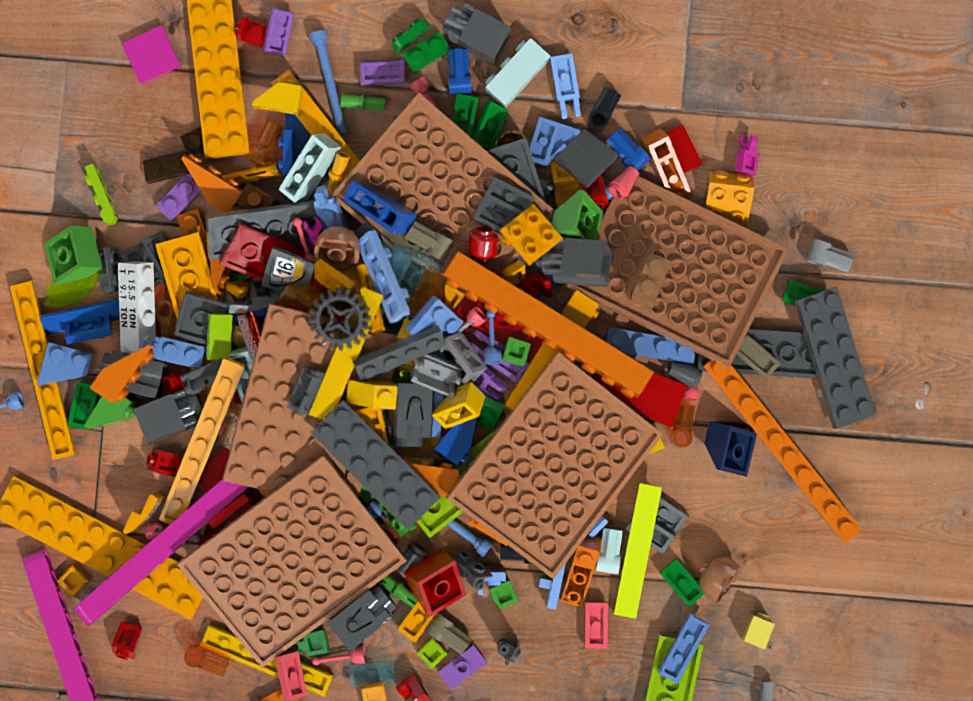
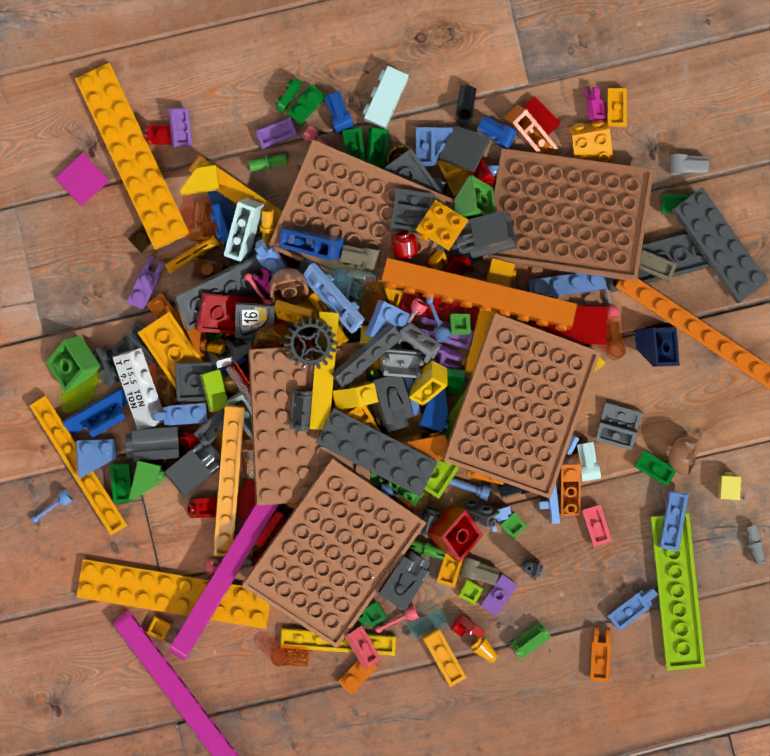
camera: 15 degrees left, 0 degrees up
(101, 194) = (80, 309): lime hinge -> none
(117, 377) = (144, 448): orange slope -> none
(126, 640) = (219, 663): red bracket -> none
(140, 517) = (198, 559): light orange slope -> none
(165, 167) = (125, 267): dark brown plate -> none
(215, 188) = (173, 272): orange slope -> none
(320, 39) = (216, 123): medium blue piece -> none
(476, 32) = (342, 75): dark grey piece -> none
(565, 83) = (428, 93): light blue hinge -> none
(622, 185) = (502, 159): coral cone -> none
(637, 550) = (610, 453): neon yellow tile -> none
(651, 280) = (550, 231): medium nougat brick -> none
(687, 374) = (602, 297): dark grey cone -> none
(770, 167) = (617, 107): none -> light orange plate

